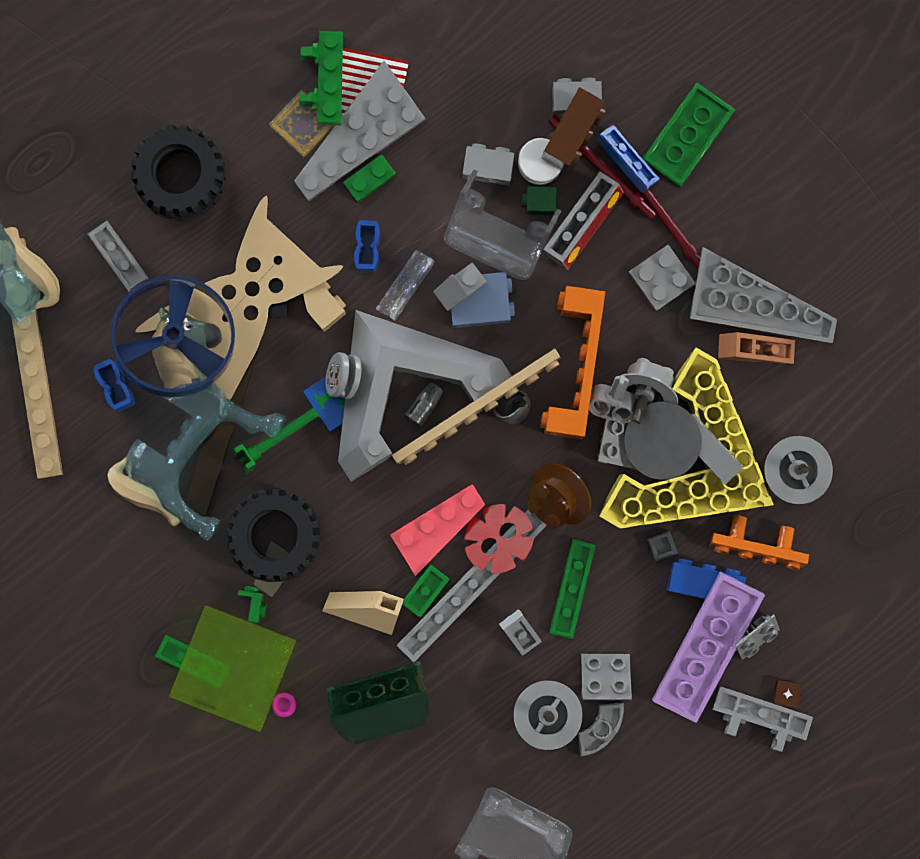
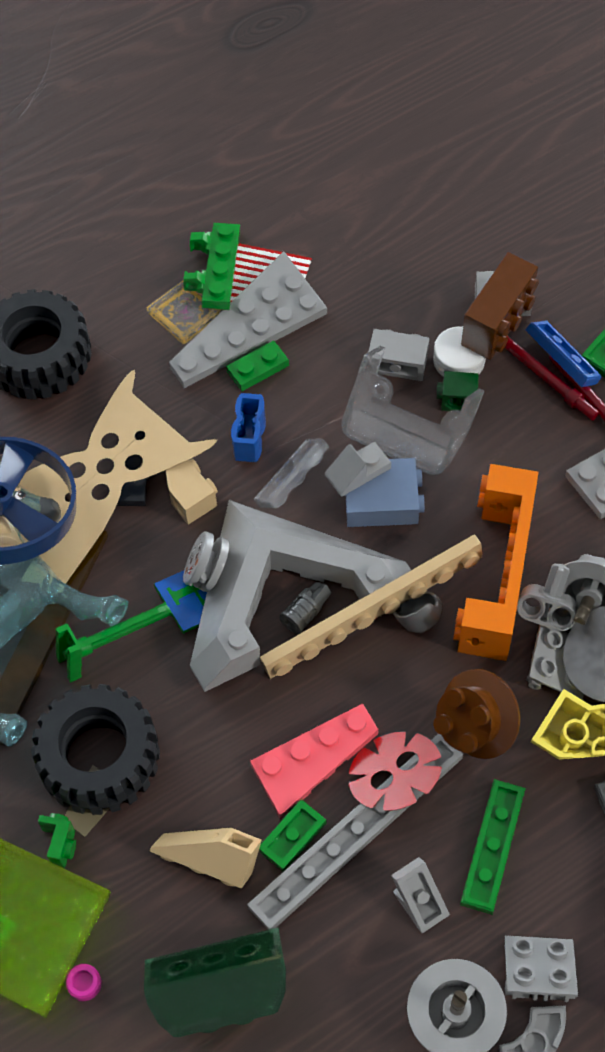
camera: 10 degrees right, 25 degrees down
(583, 220) = (510, 411): light grey brick -> none

